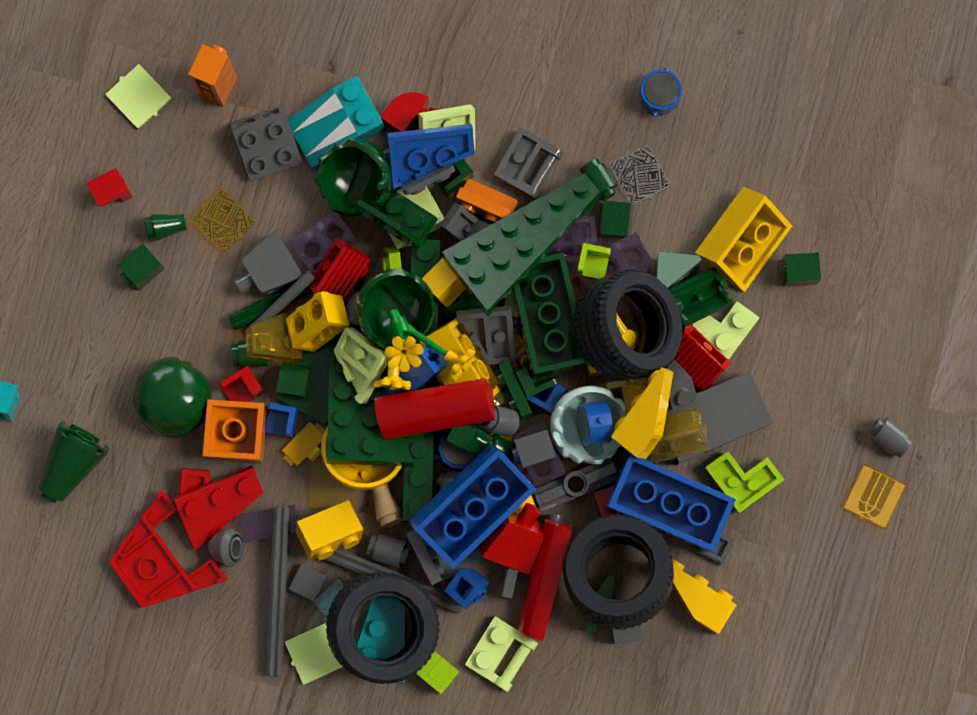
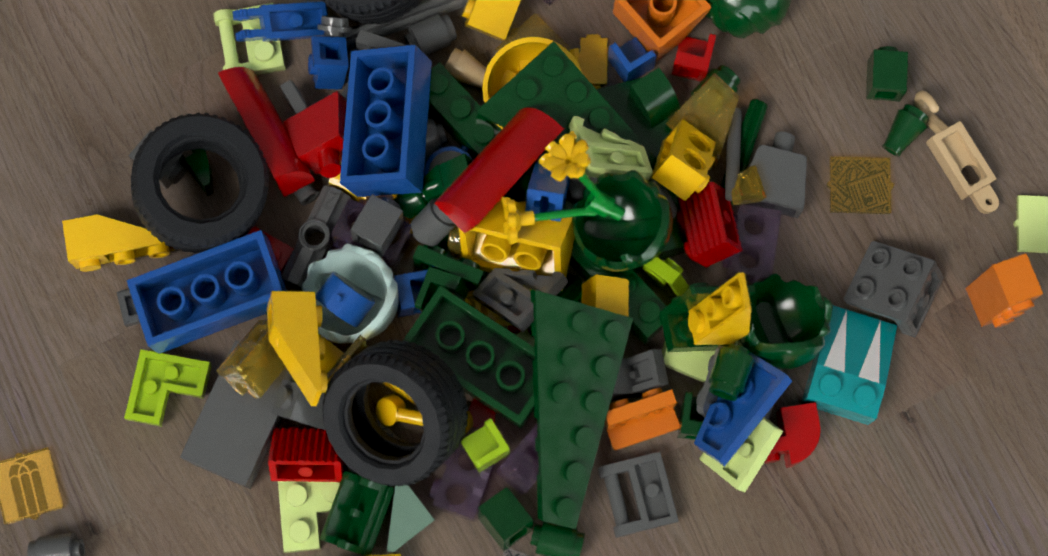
camera: 135 degrees right, 5 degrees down
(109, 188) = (986, 115): red panel -> none
(149, 185) = (956, 150): none -> tan piece
(296, 270) = (748, 187): none -> clear yellow tile
(393, 203) = (722, 315): none -> yellow slope
(416, 170) = (730, 372): none -> dark green brick
(445, 606) = (334, 26): none -> dark grey plate
(471, 640) = (282, 21): none -> blue hinge

